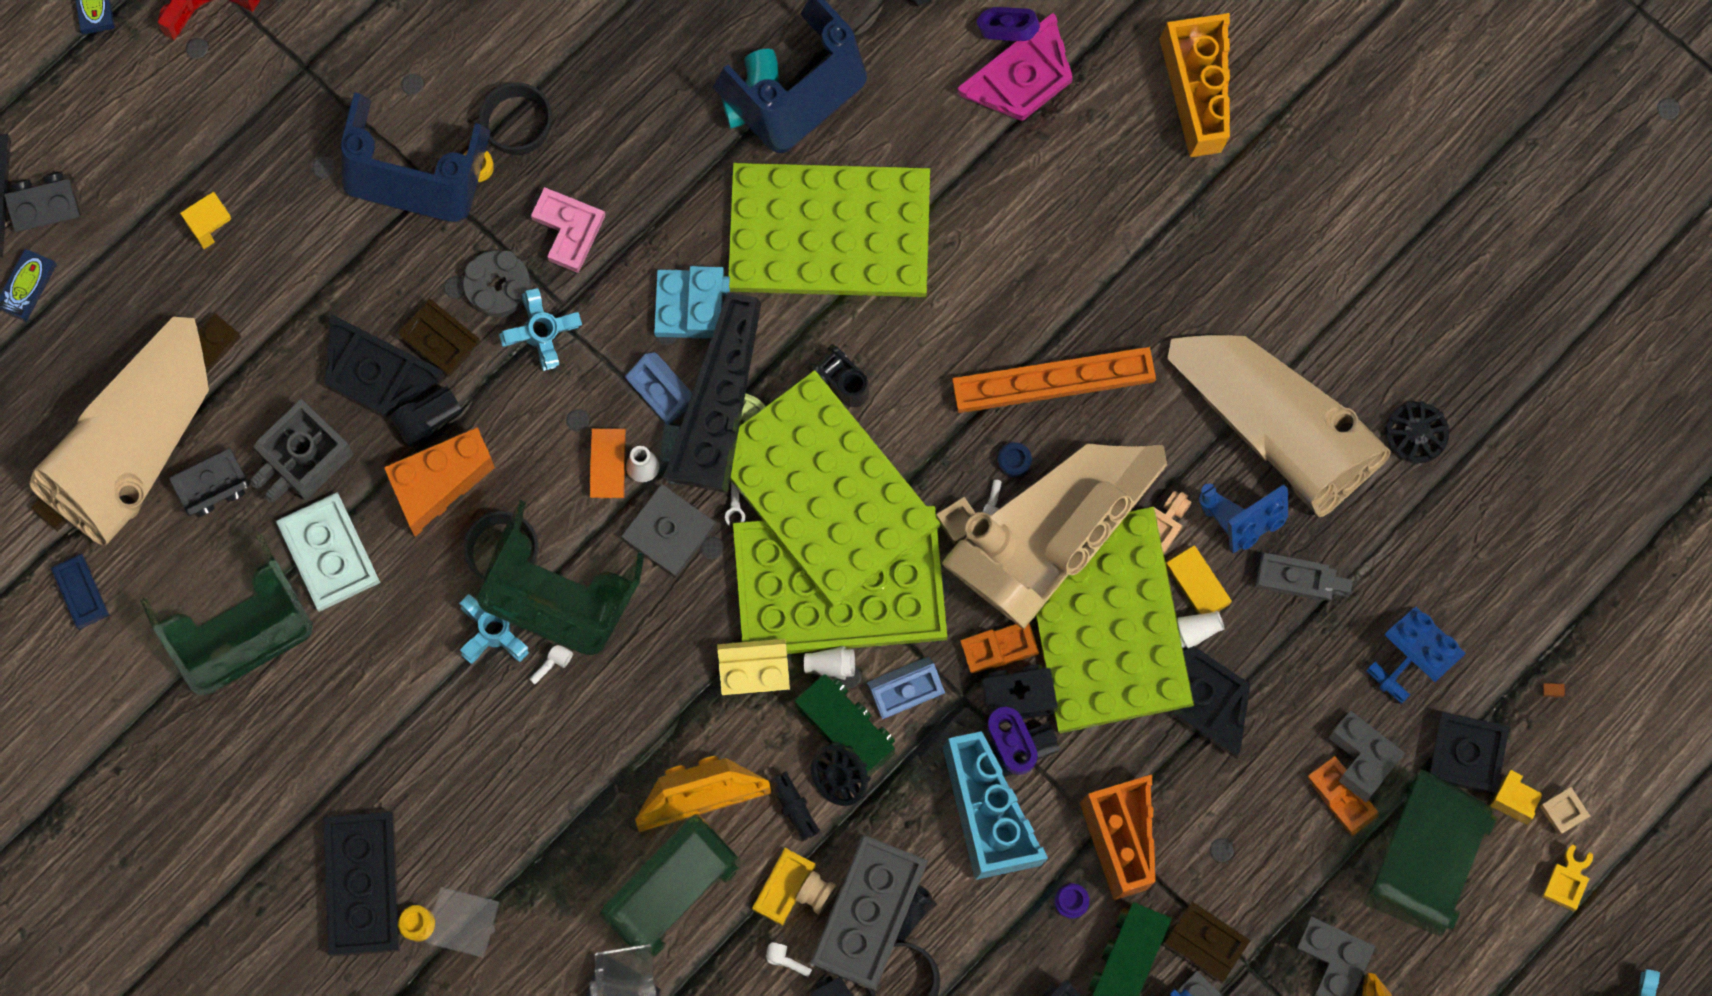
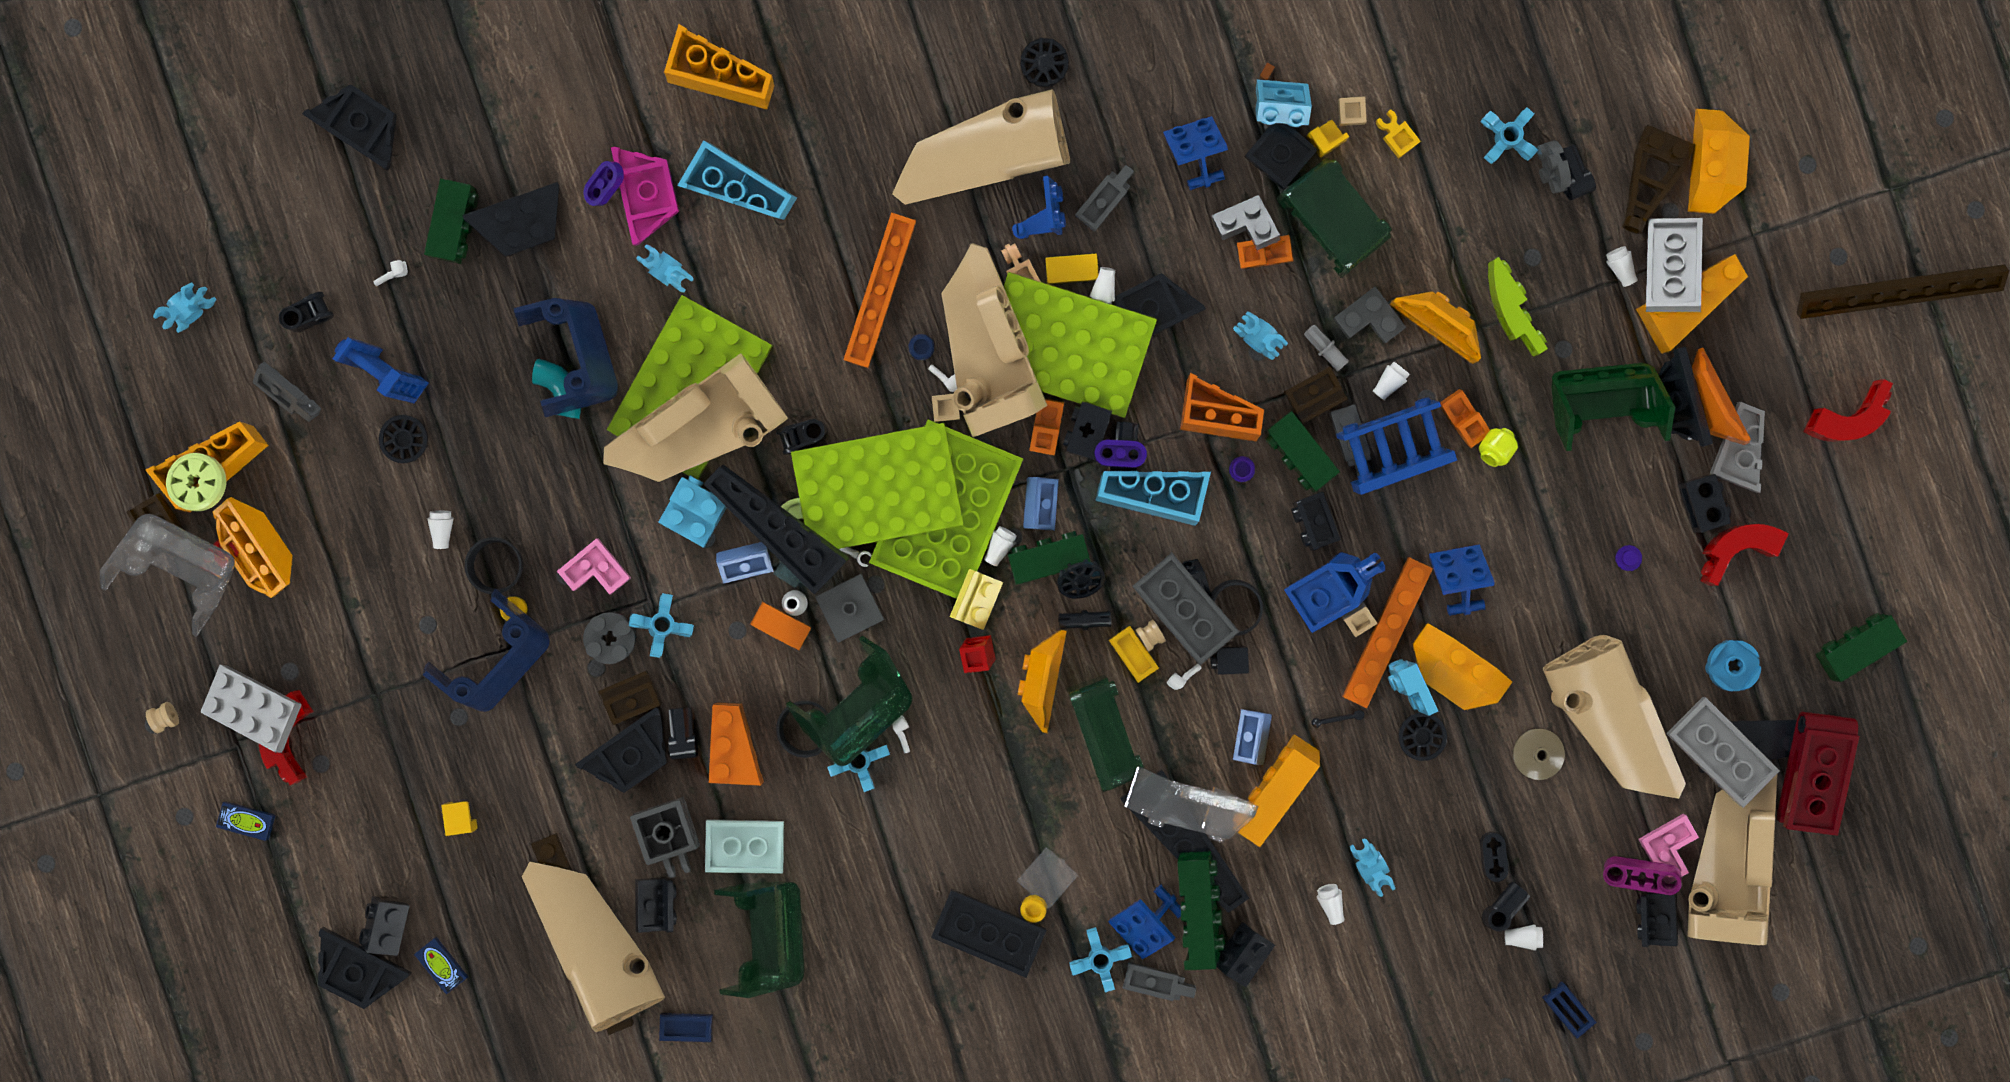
camera: 65 degrees left, 15 degrees up
(529, 42) = (440, 527): none -> white cone
(689, 698) = (977, 654): none -> red brick
(793, 254) = (698, 424): none -> tan panel
(949, 133) = (665, 268): none -> medium azure pin
(1087, 153) = (729, 180): none -> medium azure wedge
(1240, 835) = (1260, 335): none -> medium azure pin
(1270, 926) = (1326, 347): none -> light grey axle
(1526, 721) = (1283, 103): none -> medium azure plate

